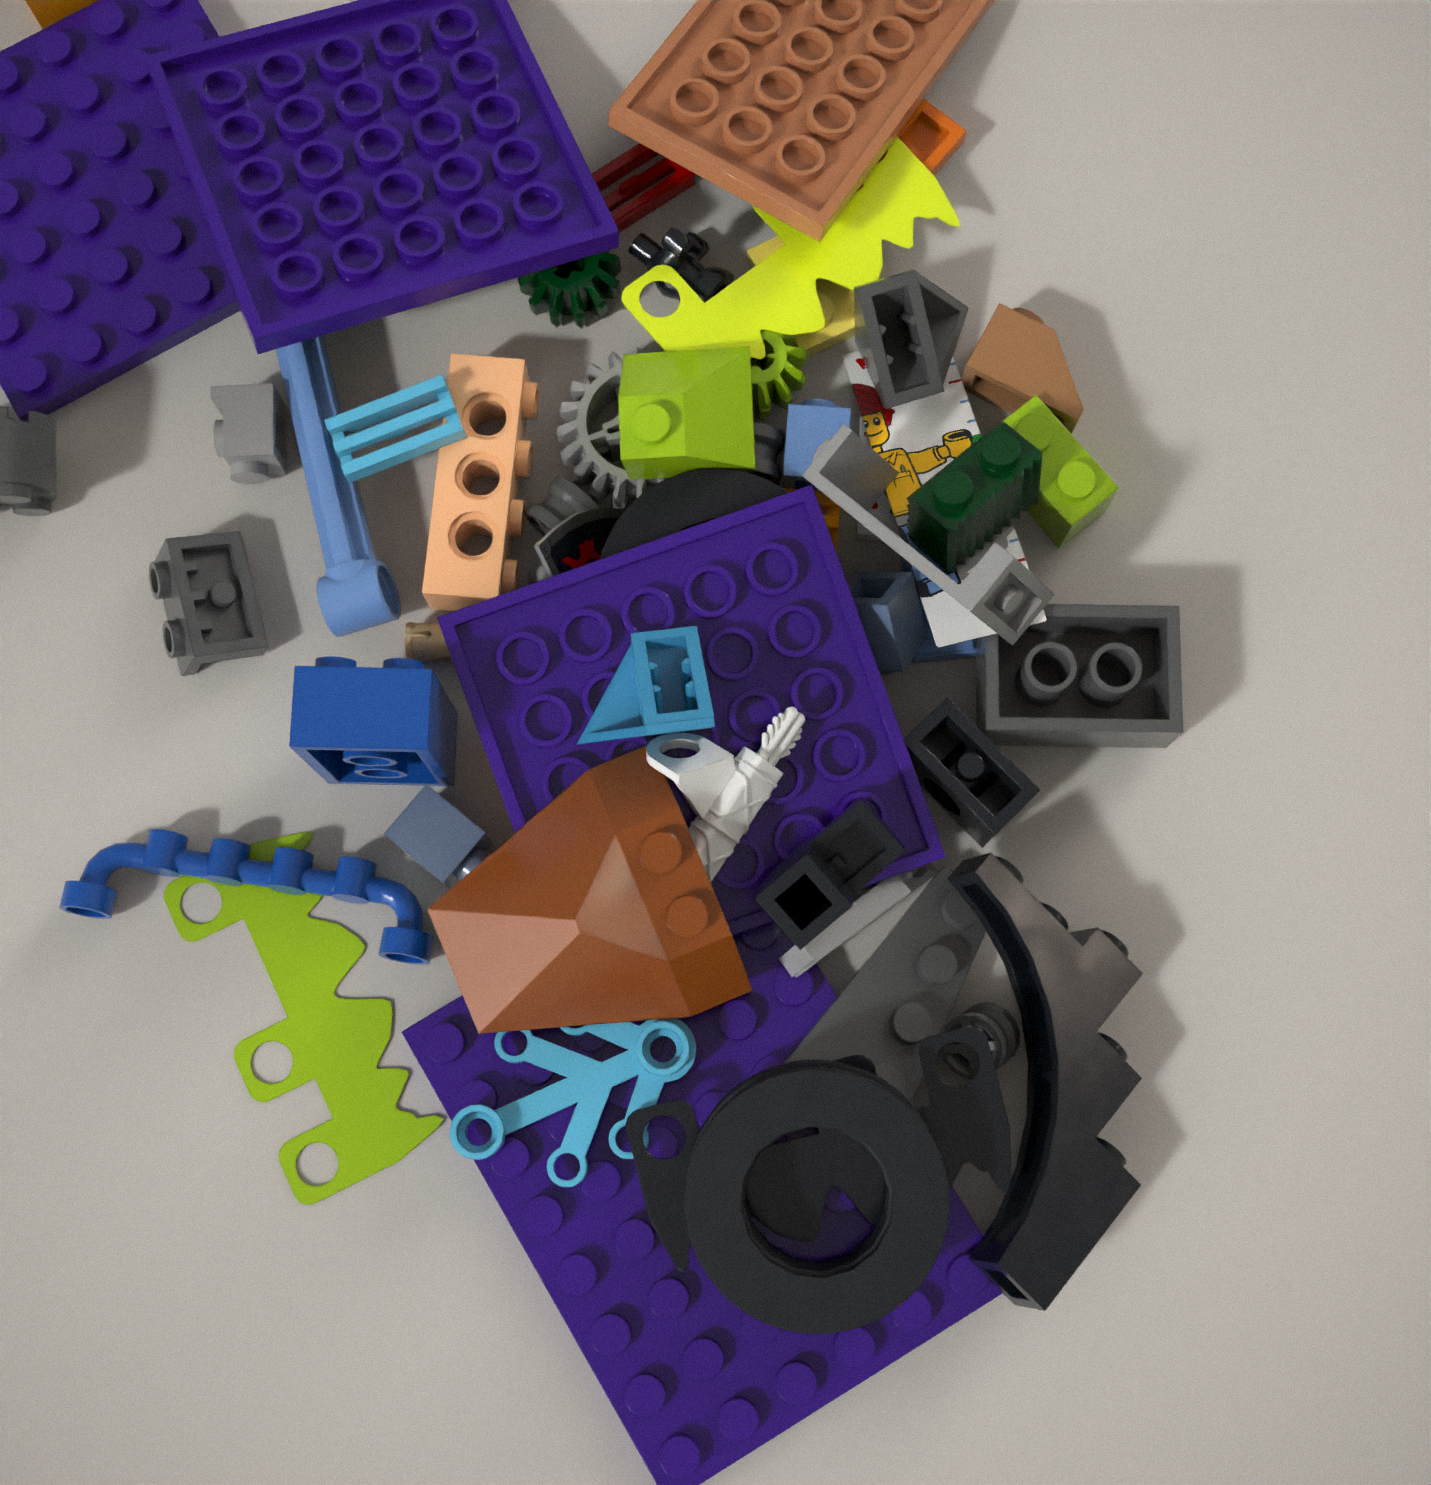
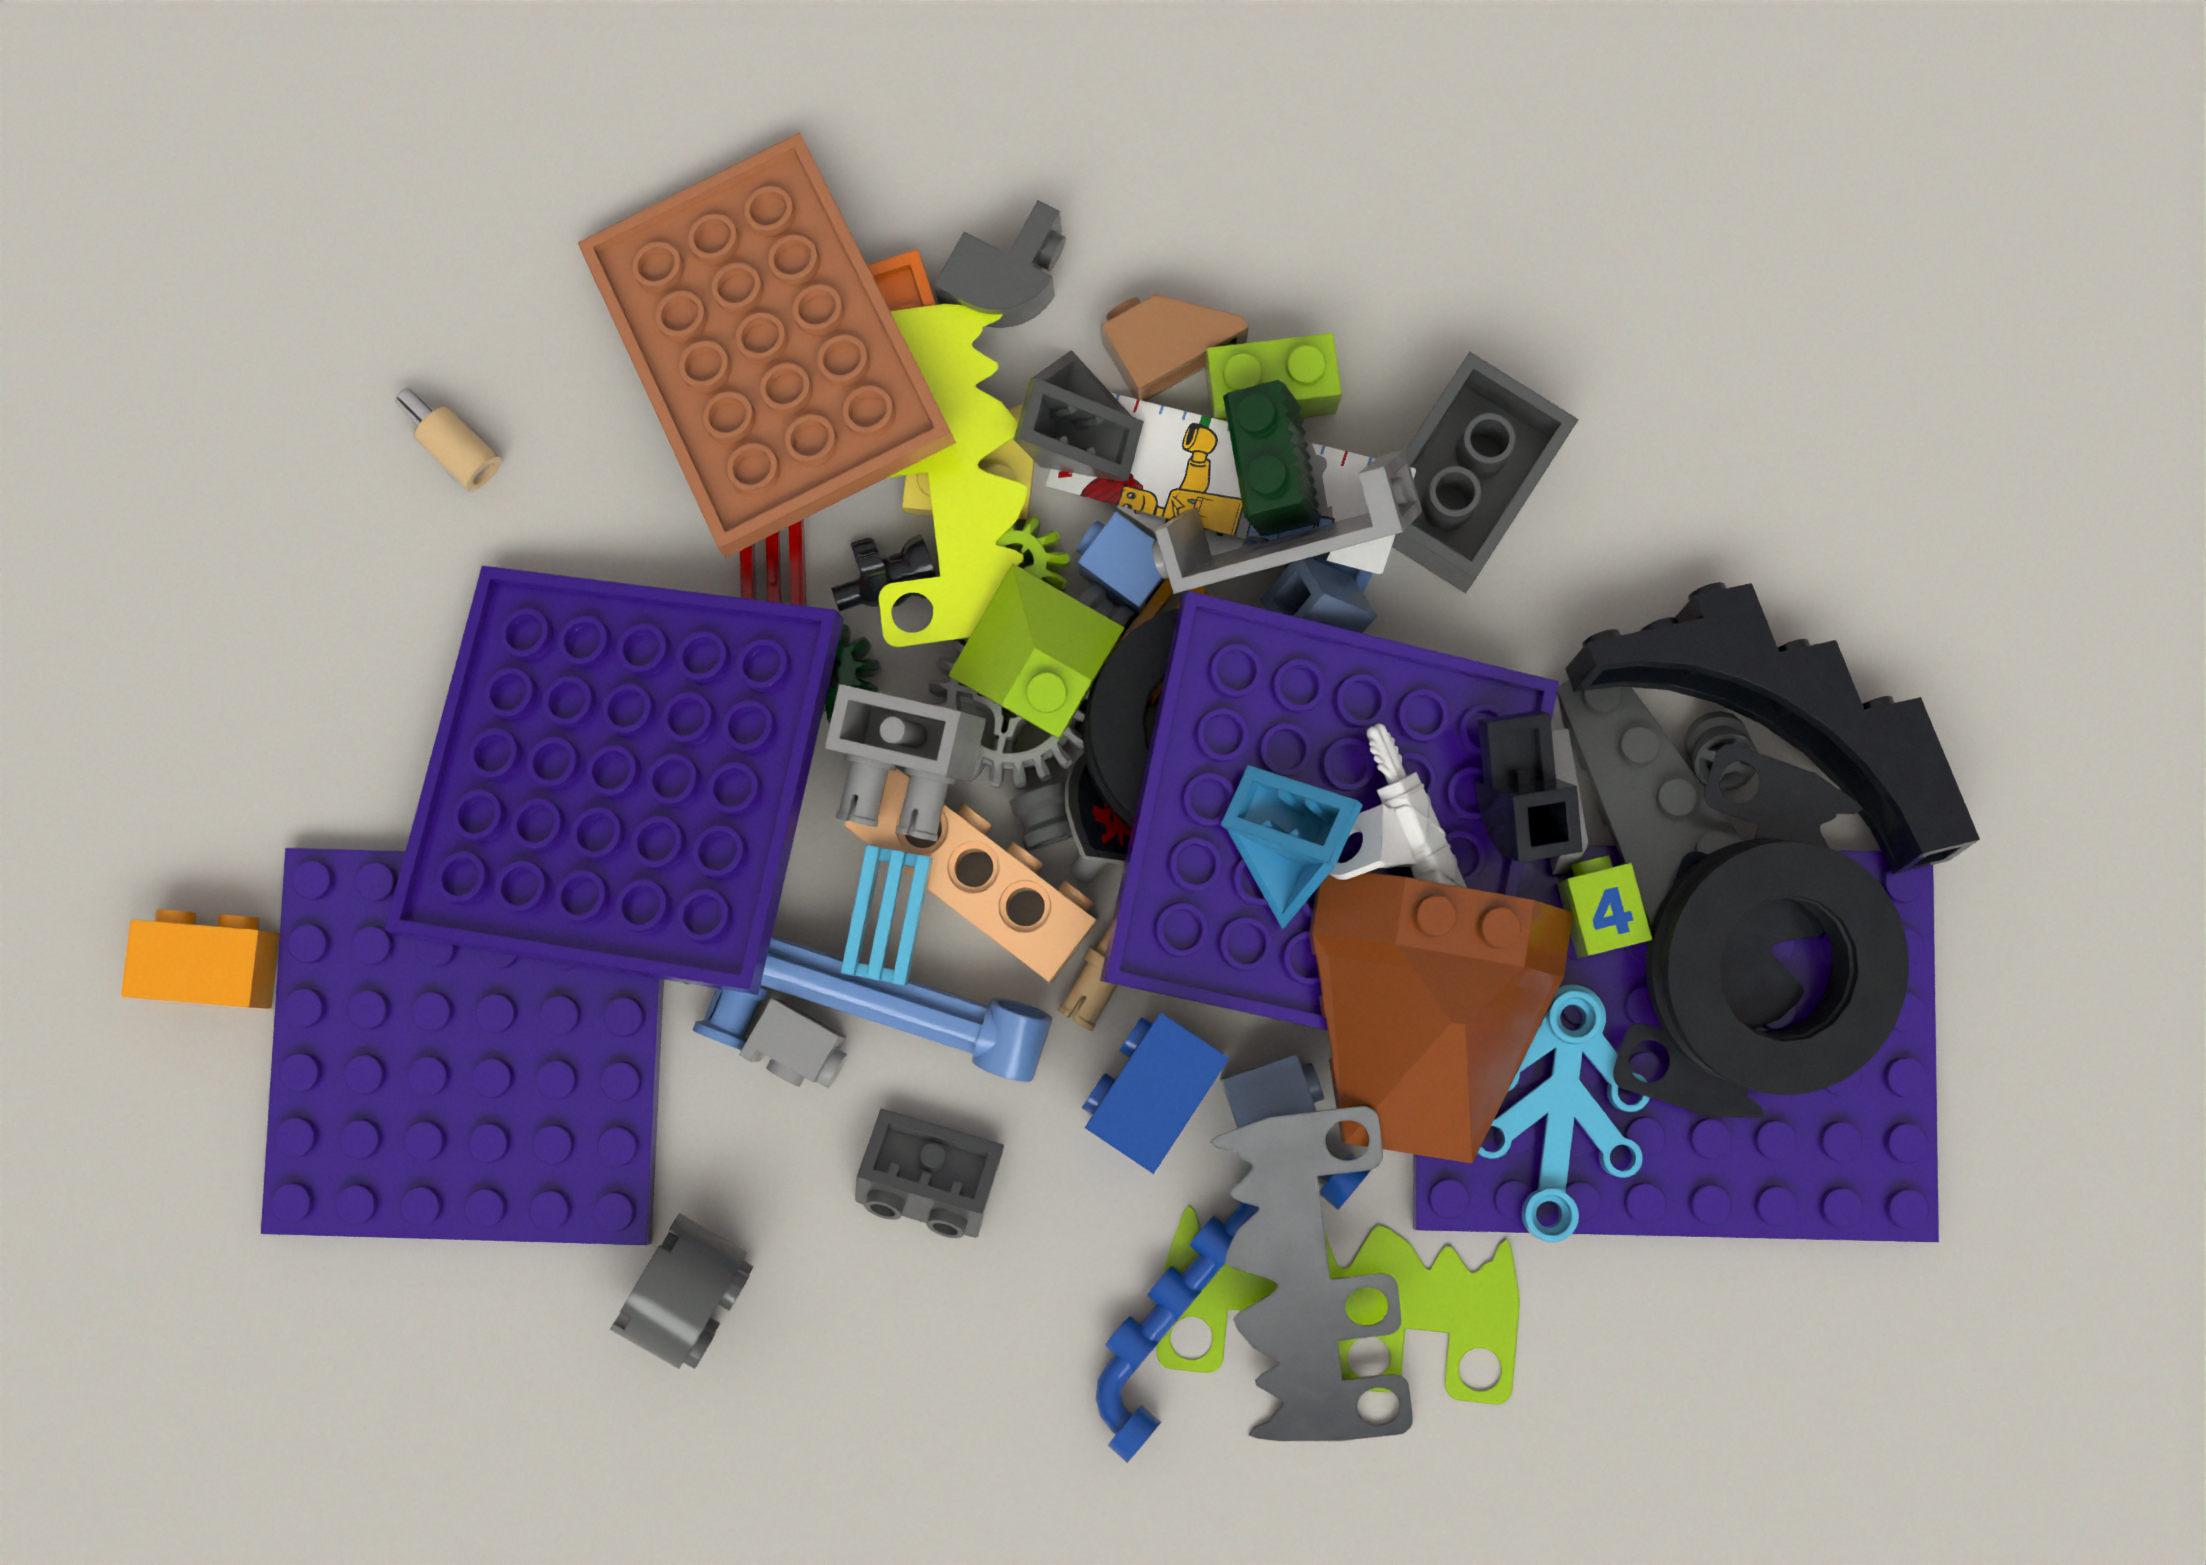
camera: 50 degrees left, 5 degrees up
(245, 366) = (730, 1016): none -> medium blue bush
(269, 975) = (1307, 1310): none -> piece
(548, 342) = (891, 731): none -> light grey brick
(773, 1013) = (1604, 907): none -> lime brick
(967, 772) = (1496, 616): black brick -> none
(988, 217) = (1003, 282): none -> dark grey brick

